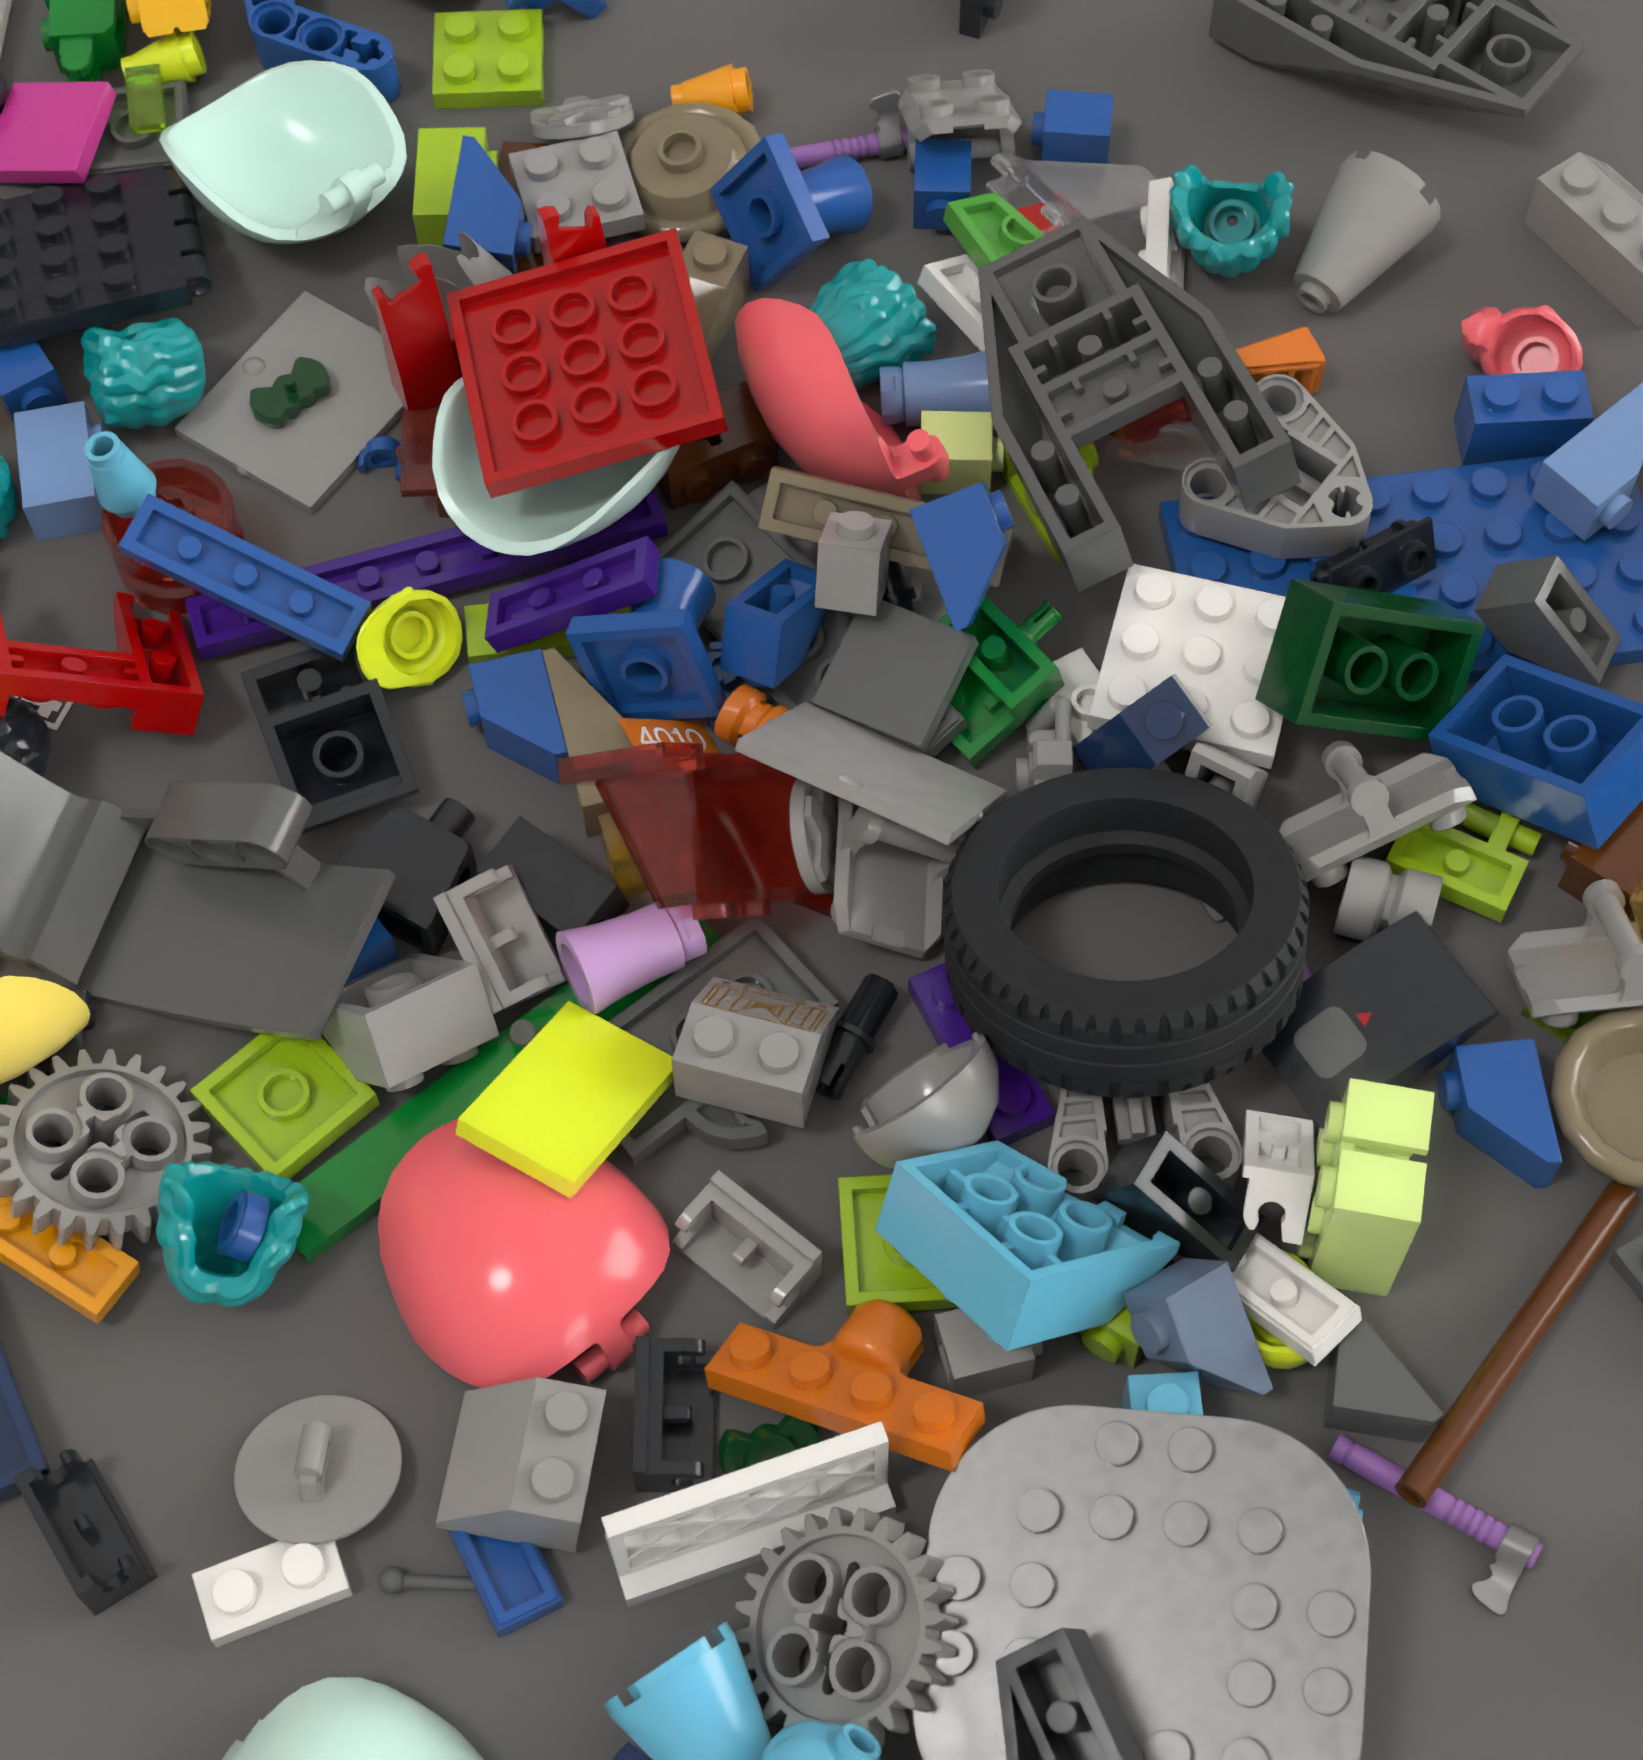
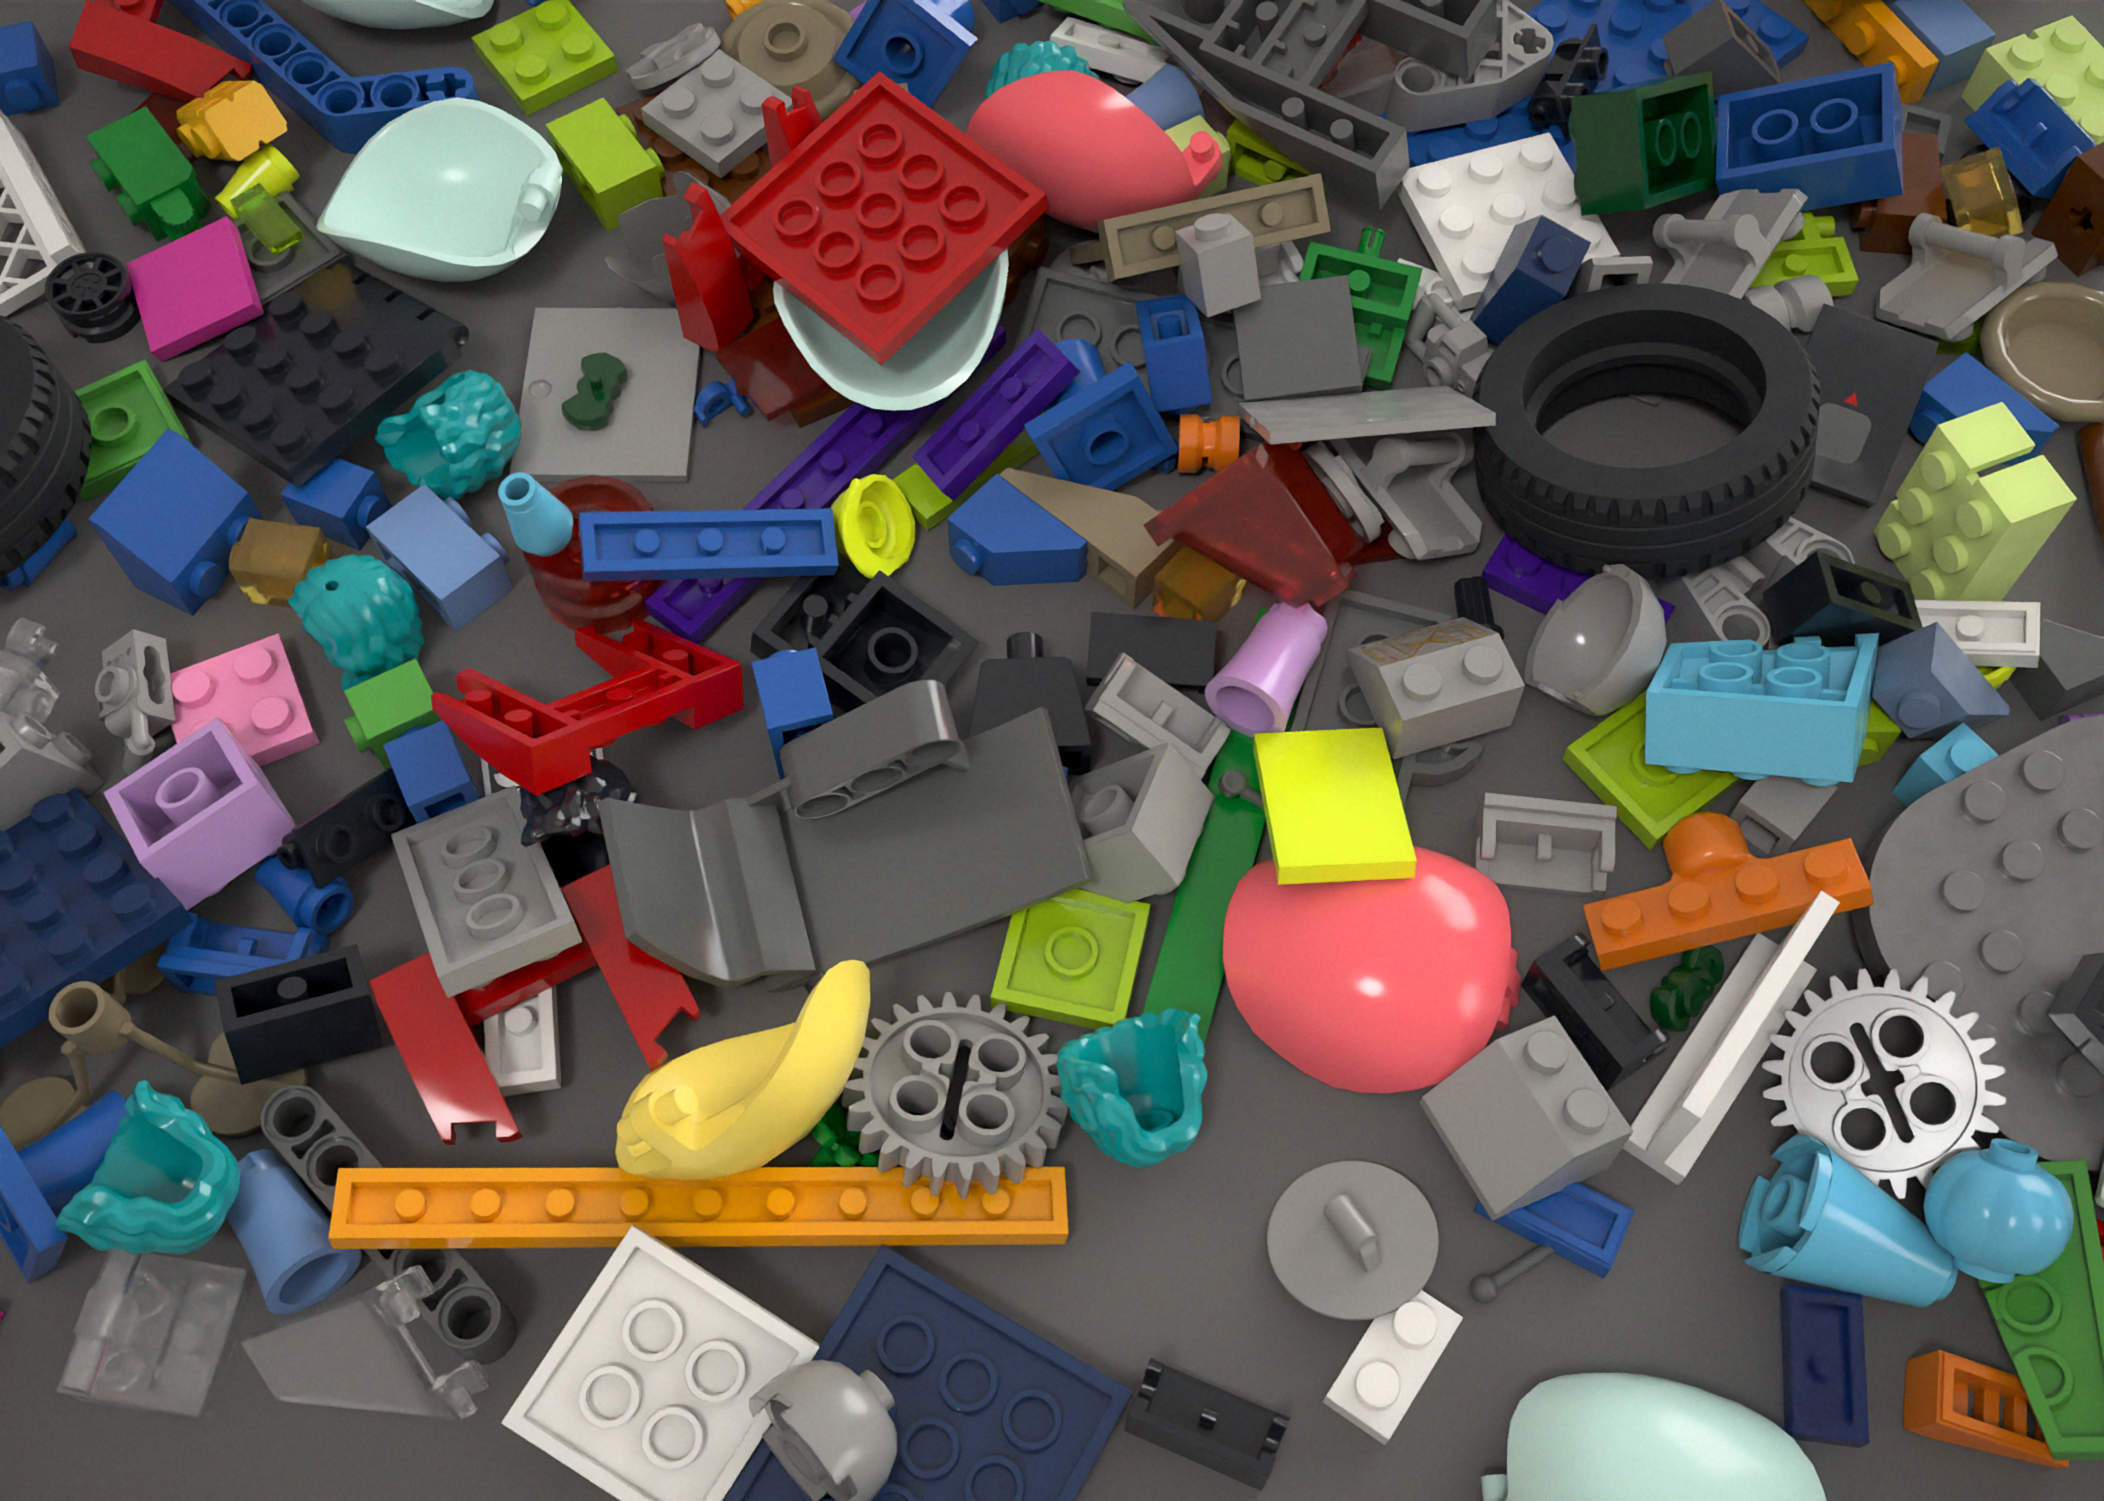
camera: 35 degrees left, 0 degrees up
(211, 746) = (791, 696): none -> blue brick
(242, 1225) = (1150, 1073): blue tile -> none
(486, 209) = (665, 144): blue slope -> none
(655, 731) = (1152, 490): orange sticker -> none
(964, 546) = (1318, 201): blue slope -> none
(1278, 1169) = (1896, 540): white hinge -> none

